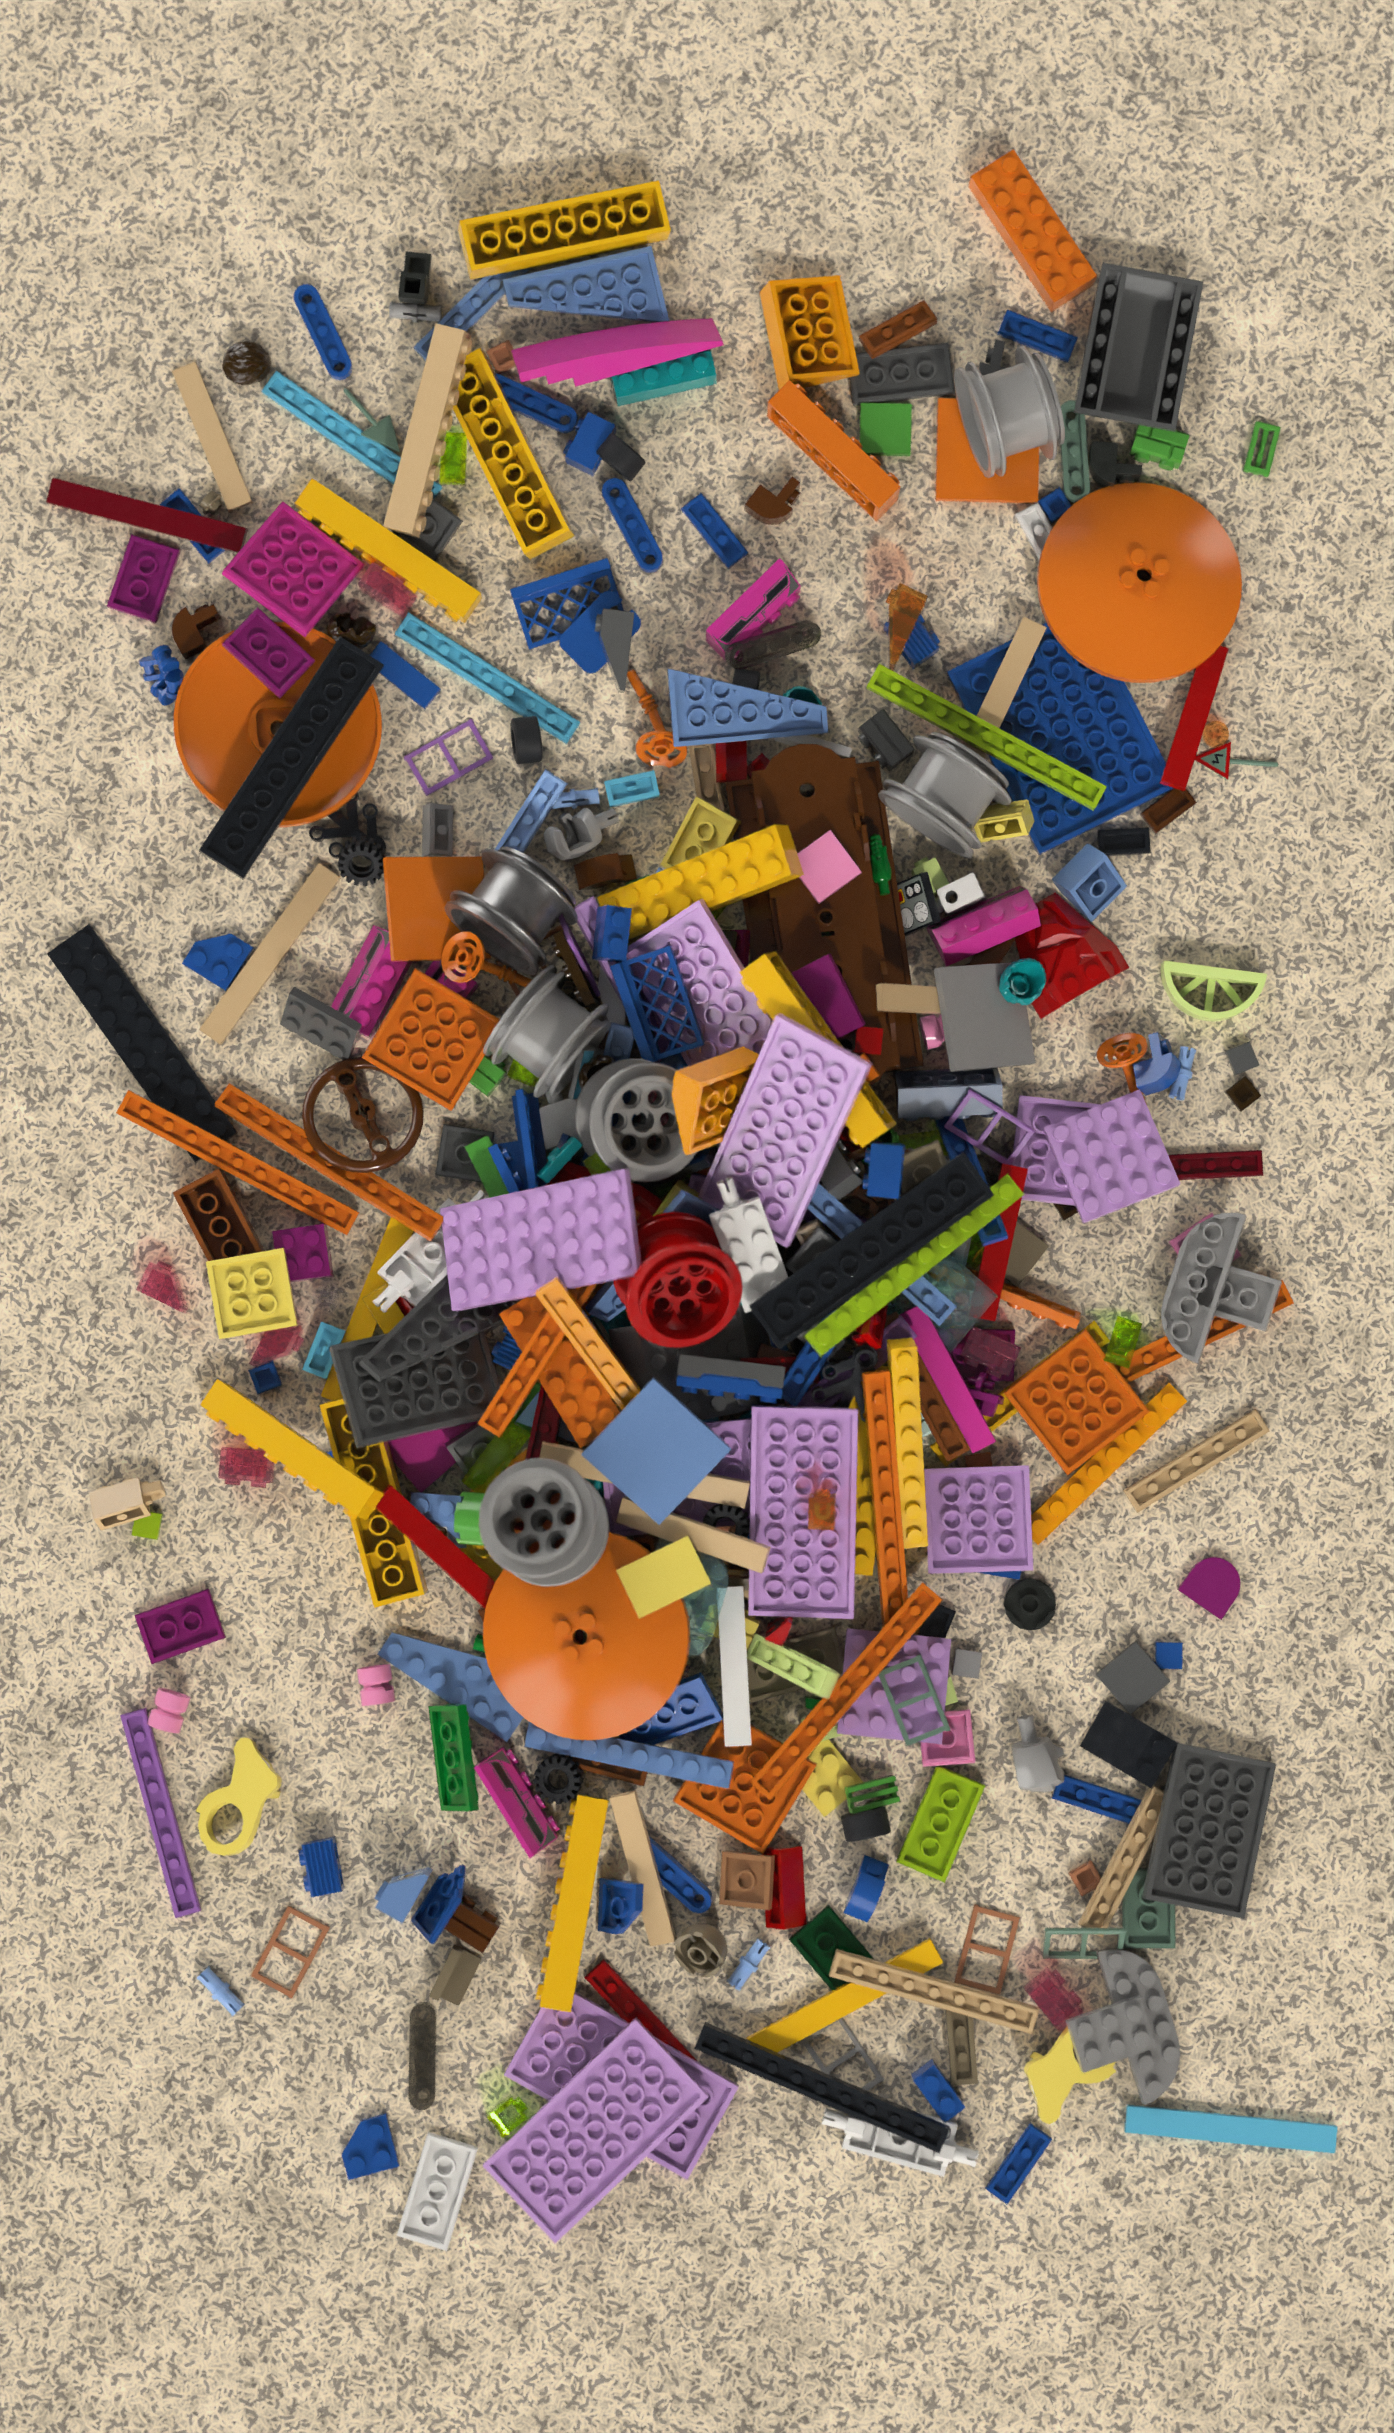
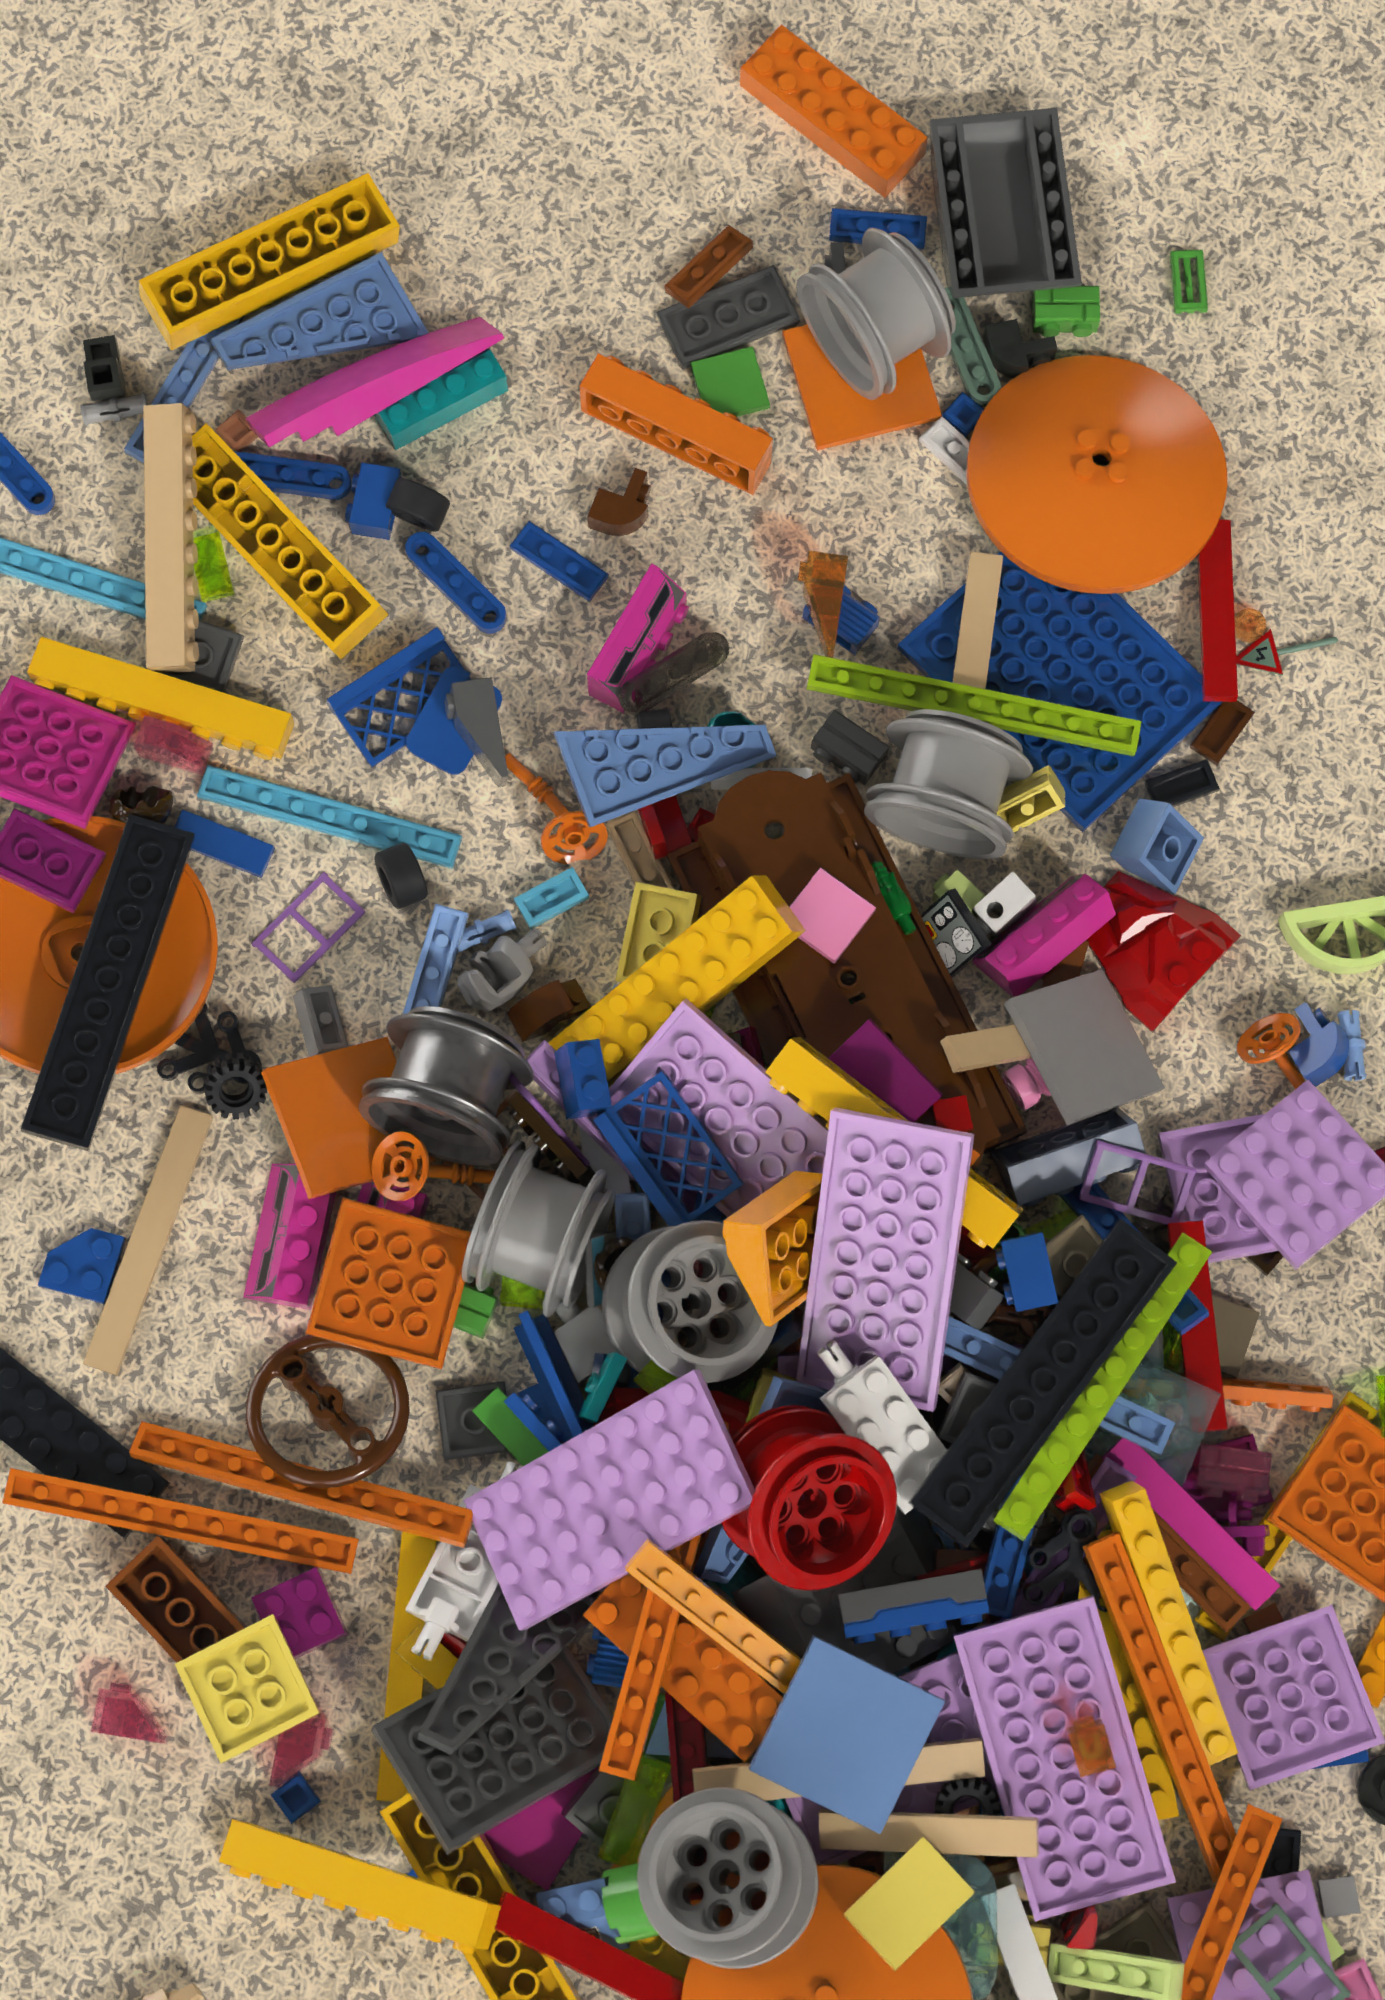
camera: 20 degrees left, 10 degrees down
(245, 1465) = (303, 1926): clear pink brick -> none
(319, 1358) = (361, 1747): medium azure plate -> none
(320, 1024) = (239, 1308): dark grey plate -> none
(381, 431) = (111, 560): sand green piece -> none
(809, 330) = (601, 295): light orange slope -> none
(1022, 981) = (1117, 988): teal hair -> none

